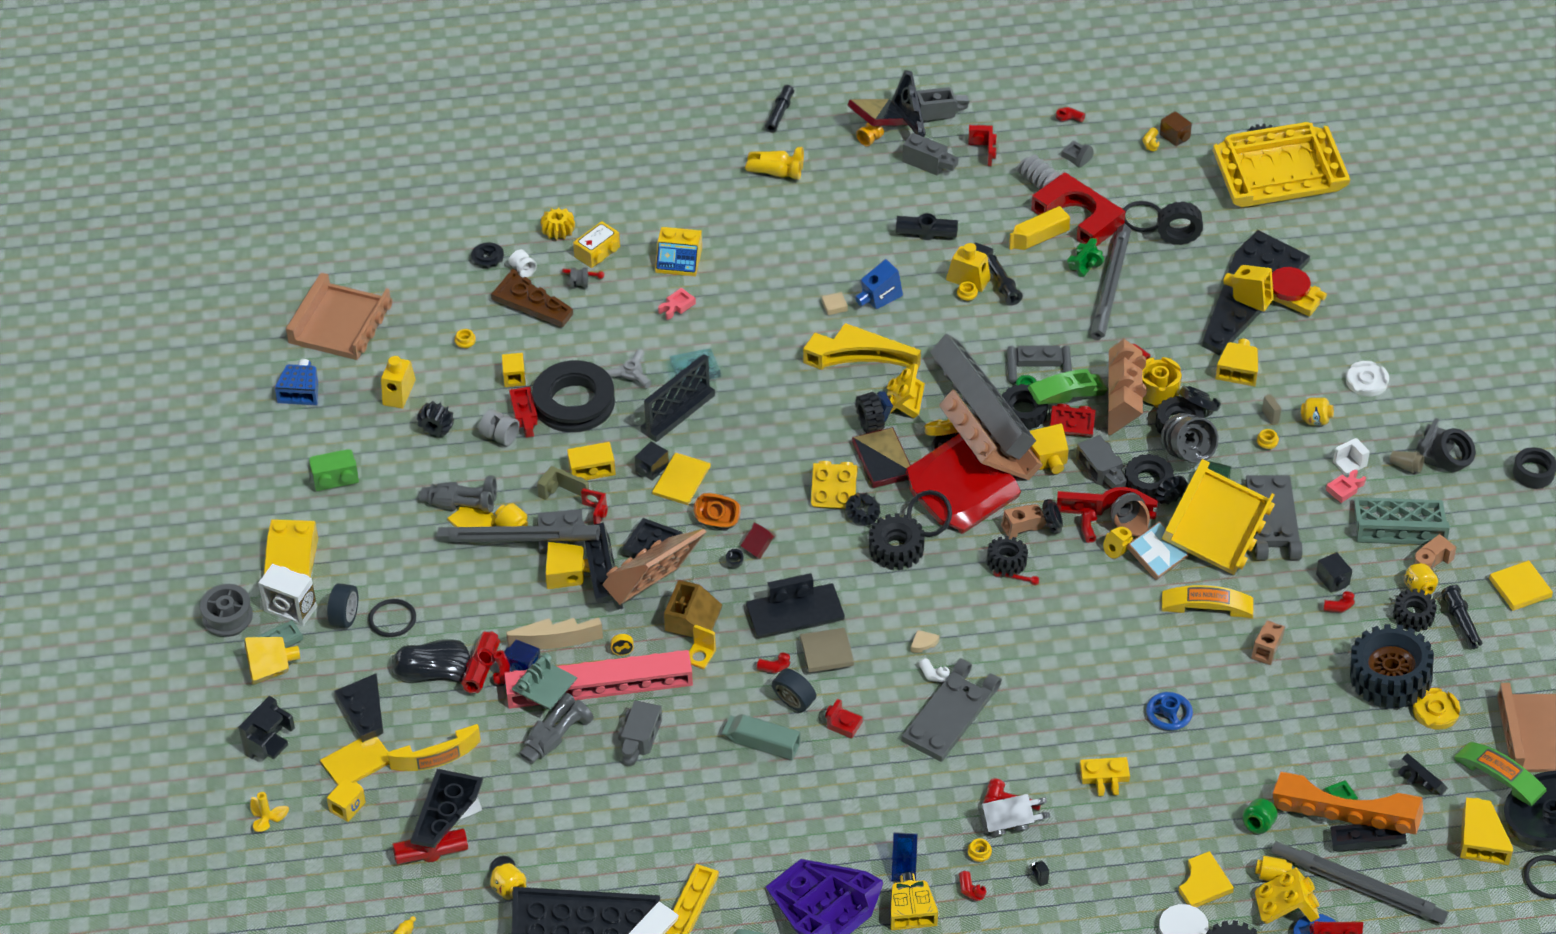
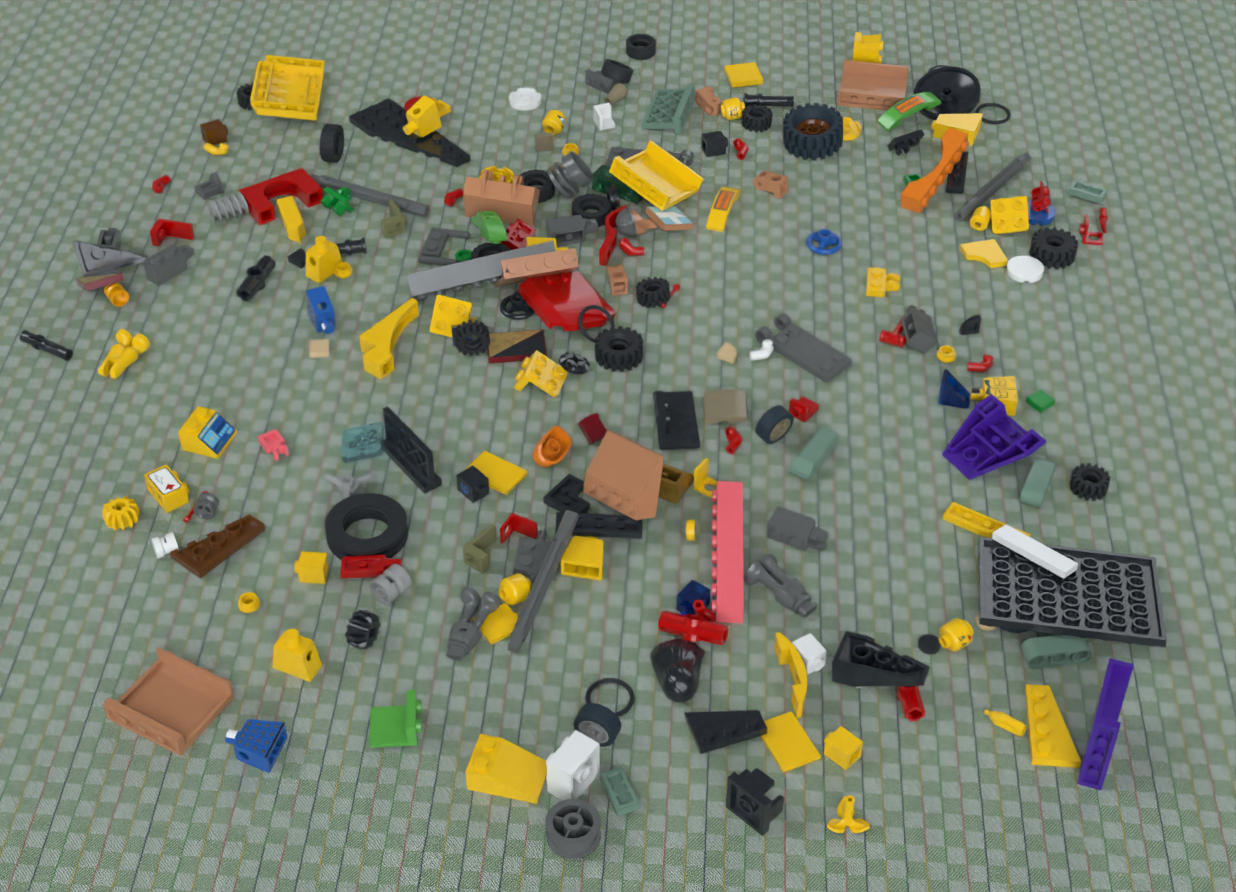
camera: 80 degrees left, 5 degrees down
(268, 657) = (653, 795): yellow torso -> none
(464, 759) = (811, 652): none -> white brick
(489, 249) = (140, 567): black gear -> none
(544, 682) = (739, 576): sand green hinge -> none
(559, 635) = (667, 573): tan slope -> none
(592, 461) = (458, 523): yellow brick -> none
(939, 427) = (502, 300): yellow tile -> none
(1052, 516) = (621, 257): black gear -> none
(1063, 316) = (396, 223): none -> olive bracket
(1117, 541) = (656, 234): yellow piece -> none
(1141, 203) = (301, 160): black tyre -> none
(1199, 398) = (525, 167): black tile -> none
(1238, 363) = (489, 147): yellow torso -> none
(1260, 816) = (934, 214): green head -> none
(1344, 488) = (631, 126): coral plate -> none

